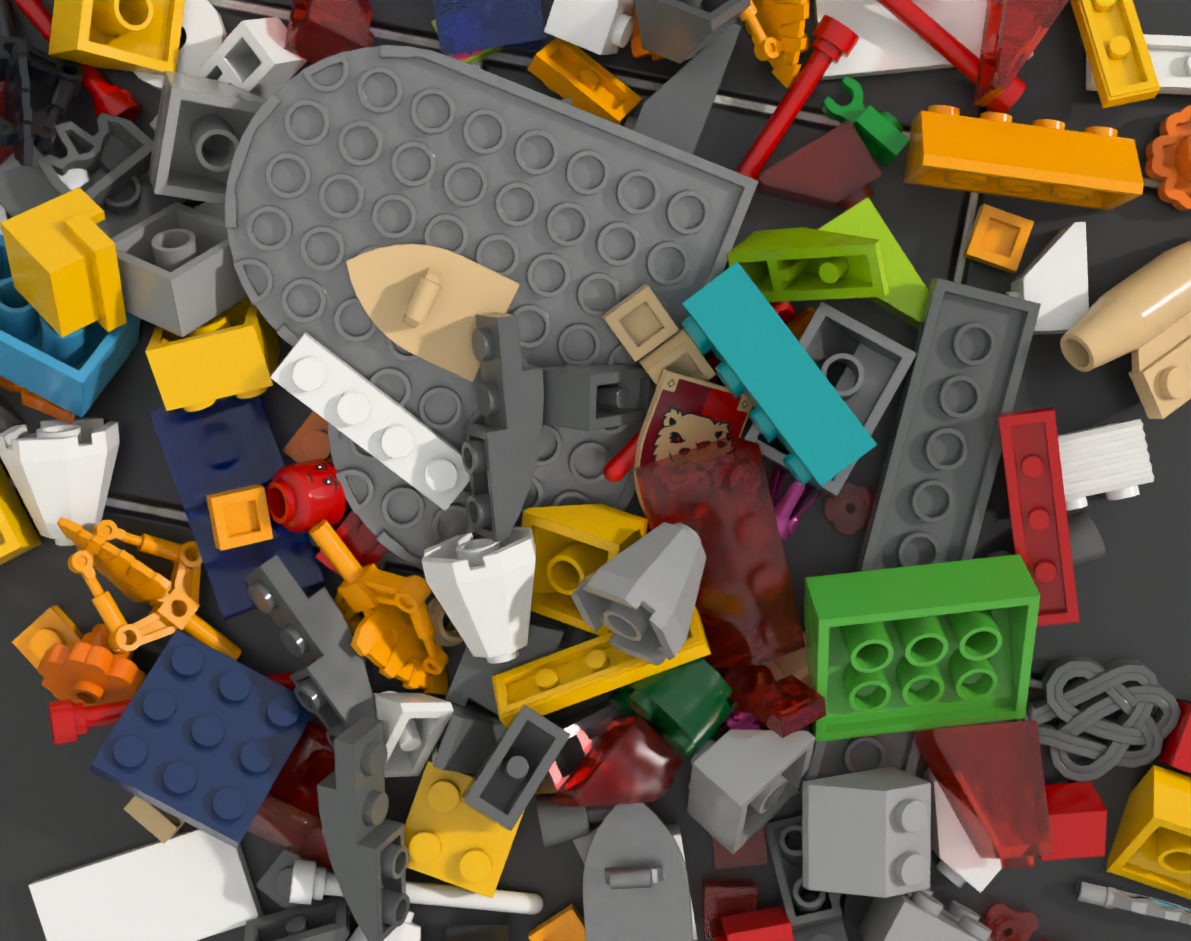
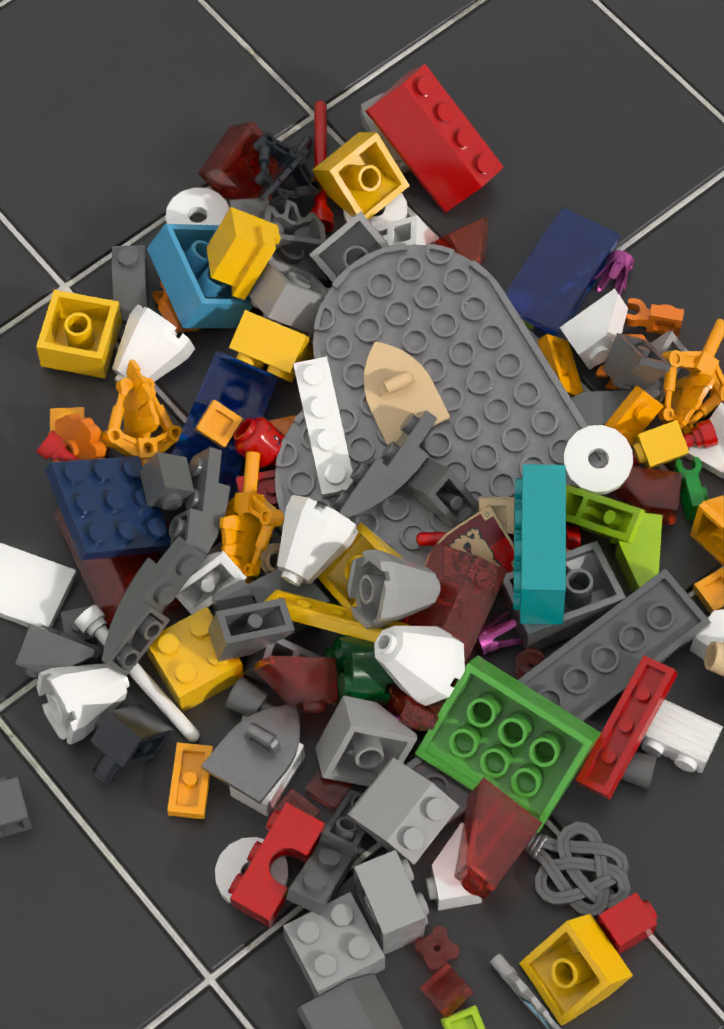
camera: 40 degrees right, 25 degrees down
(154, 819) = (47, 537): tan plate -> none
(245, 646) = (166, 481): none -> dark grey brick
(640, 322) = (495, 478): tan plate -> none
(730, 98) = (634, 414): none -> light orange plate
(756, 655) = (421, 660): none -> white cone
(776, 198) = (598, 439): none -> white tile
(800, 105) = (660, 445): none -> yellow brick
(1075, 821) = (516, 905): red brick -> none

